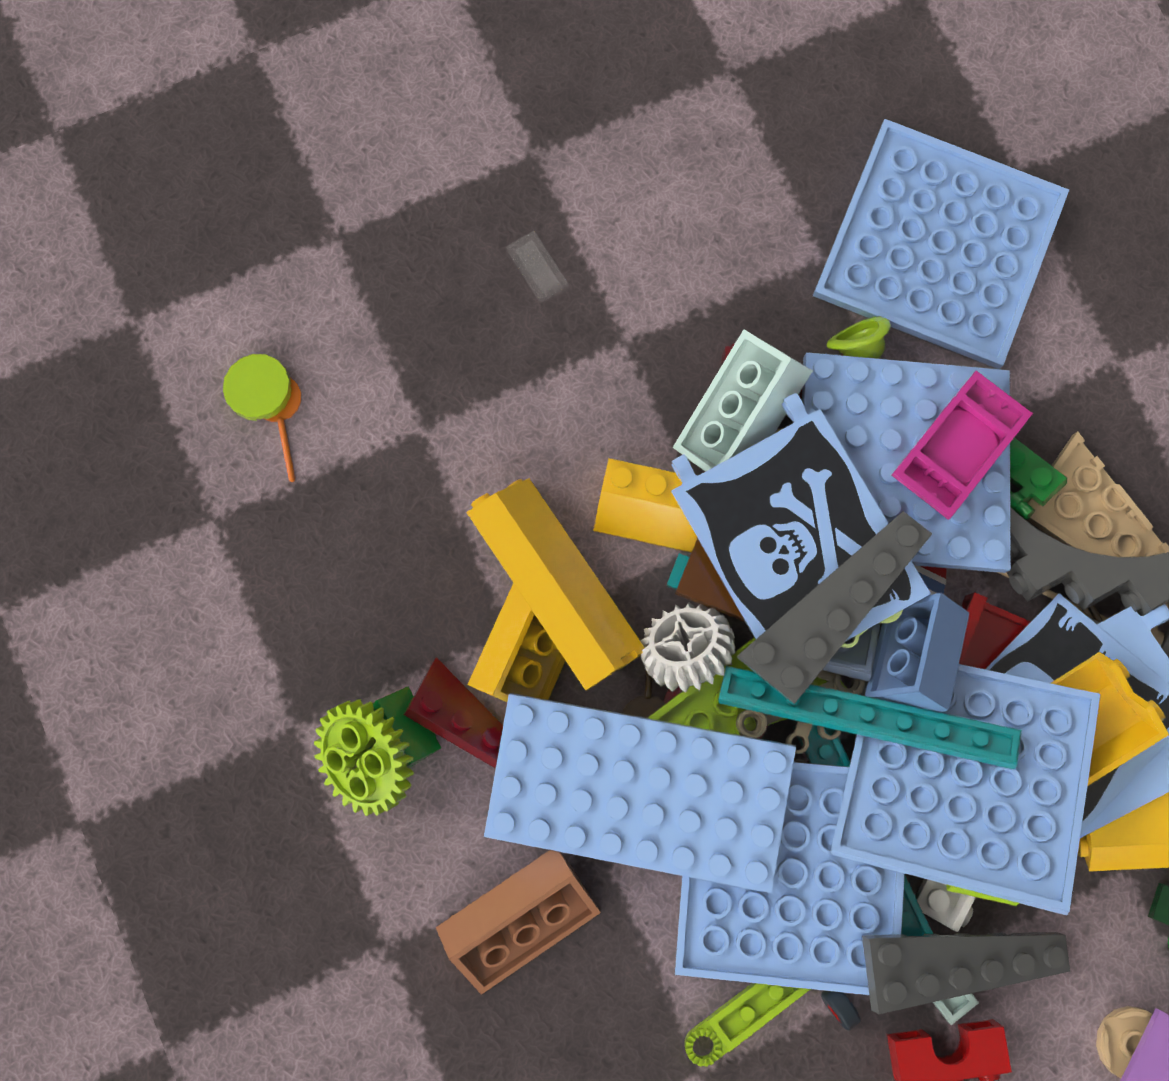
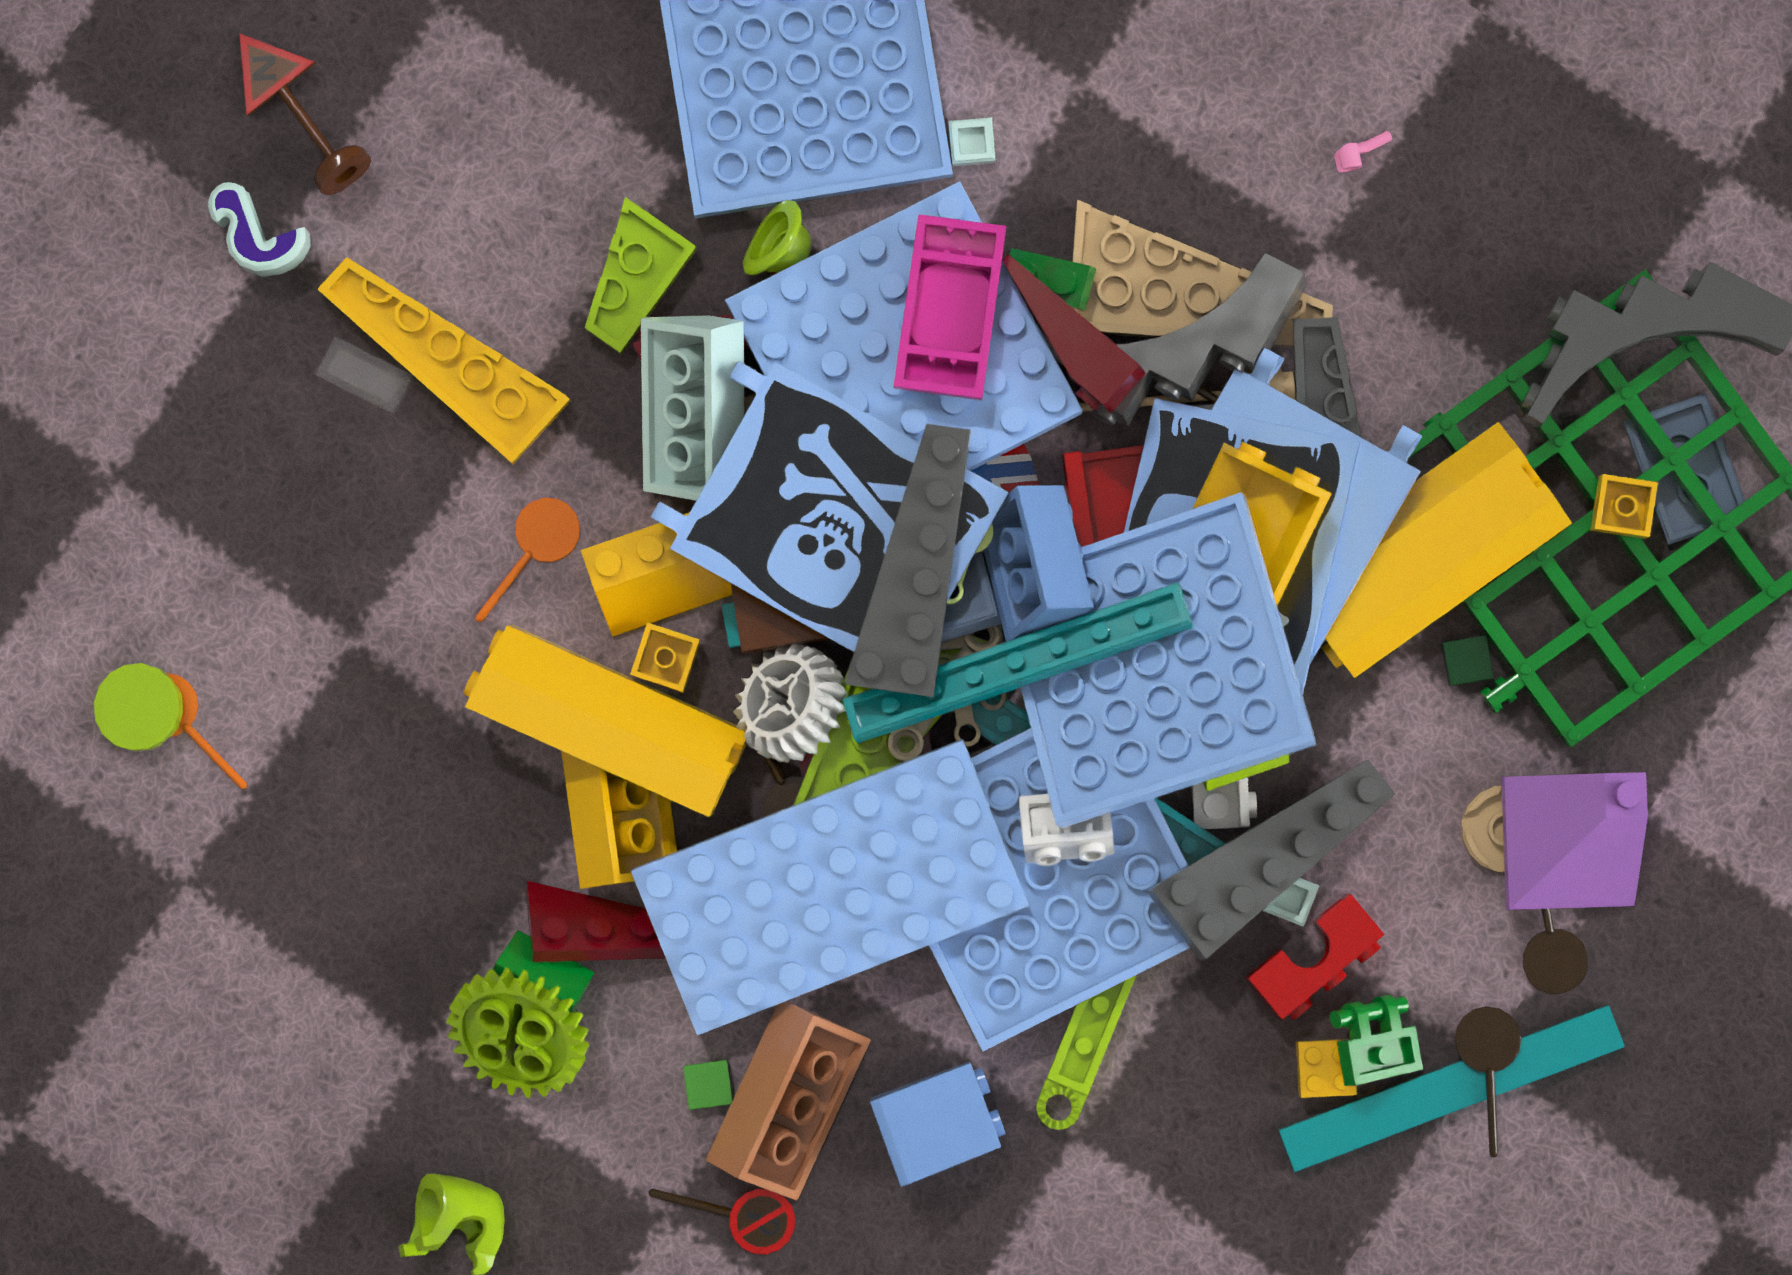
camera: 30 degrees left, 5 degrees up
(243, 847) = (460, 1204): none -> lime piece
(445, 991) = (758, 1221): none -> piece
(470, 873) = (708, 1084): none -> bright green tile
(516, 134) = (246, 238): none -> light aqua animal
(590, 436) = (545, 532): none -> orange piece
(594, 47) = (268, 73): none -> reddish brown piece
(606, 313) = (472, 379): none -> yellow wing
(612, 1005) = (937, 1122): none -> medium blue slope
(620, 565) = (665, 657): none -> yellow piece
(755, 306) = (636, 276): none -> lime wing
(814, 856) = (1049, 844): none -> white bracket
(841, 1009) = (1177, 979): black wheel -> none
(1025, 354) = (971, 141): none -> light aqua tile
(1038, 535) = (1088, 355): none -> dark red slope

